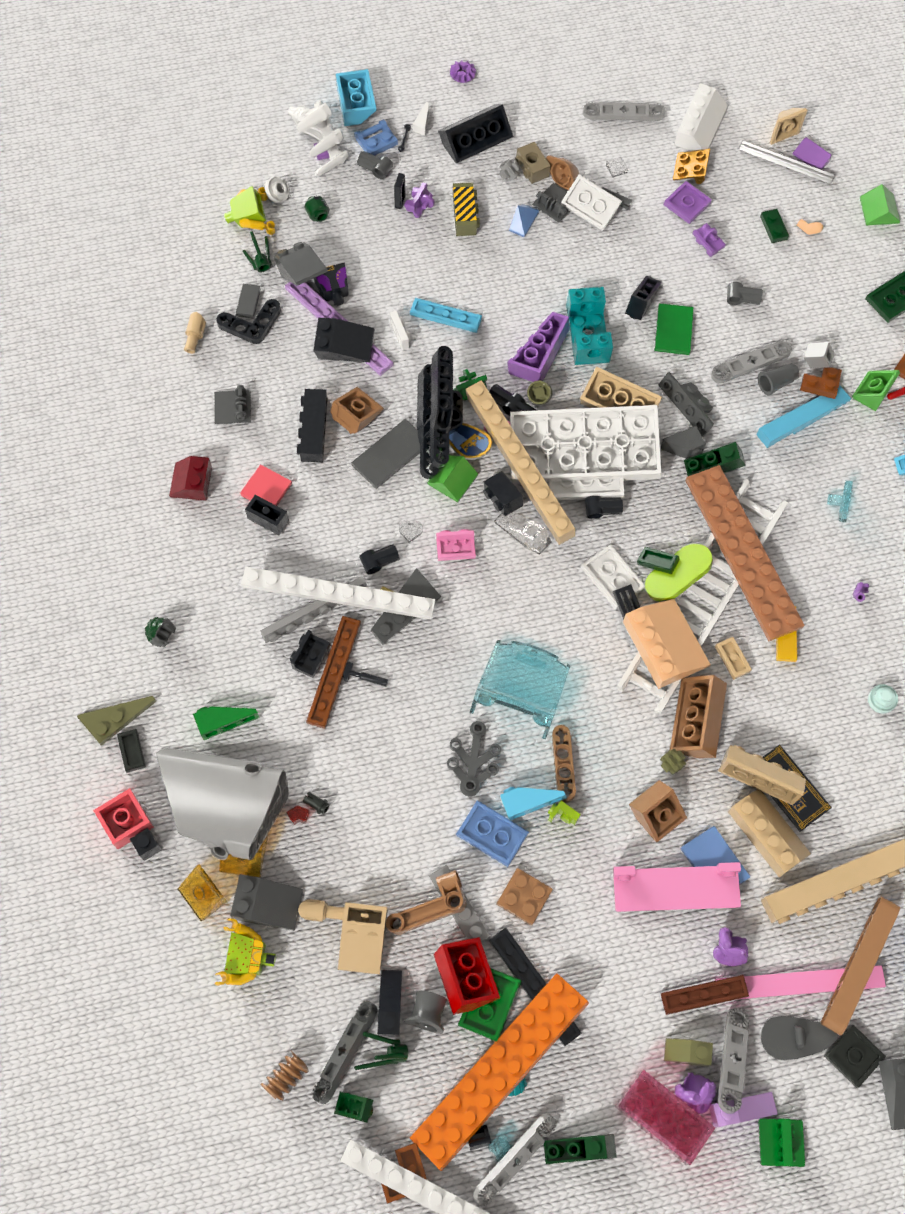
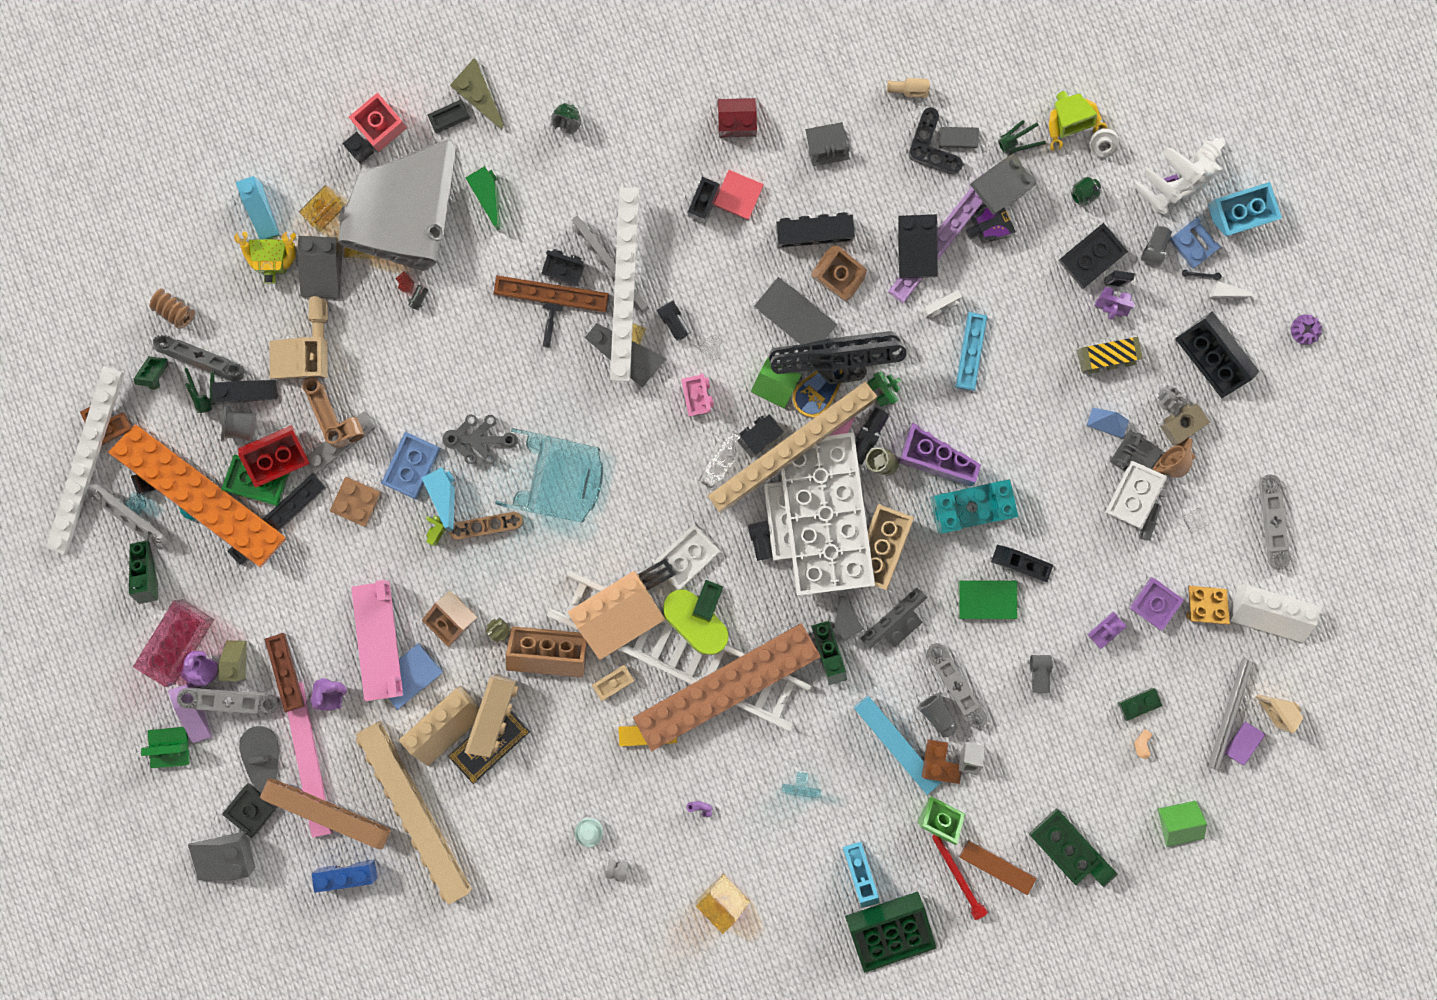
camera: 85 degrees right, 20 degrees up
(189, 963) = (257, 207): none -> medium azure slope
(375, 211) = (1093, 255): none -> black plate

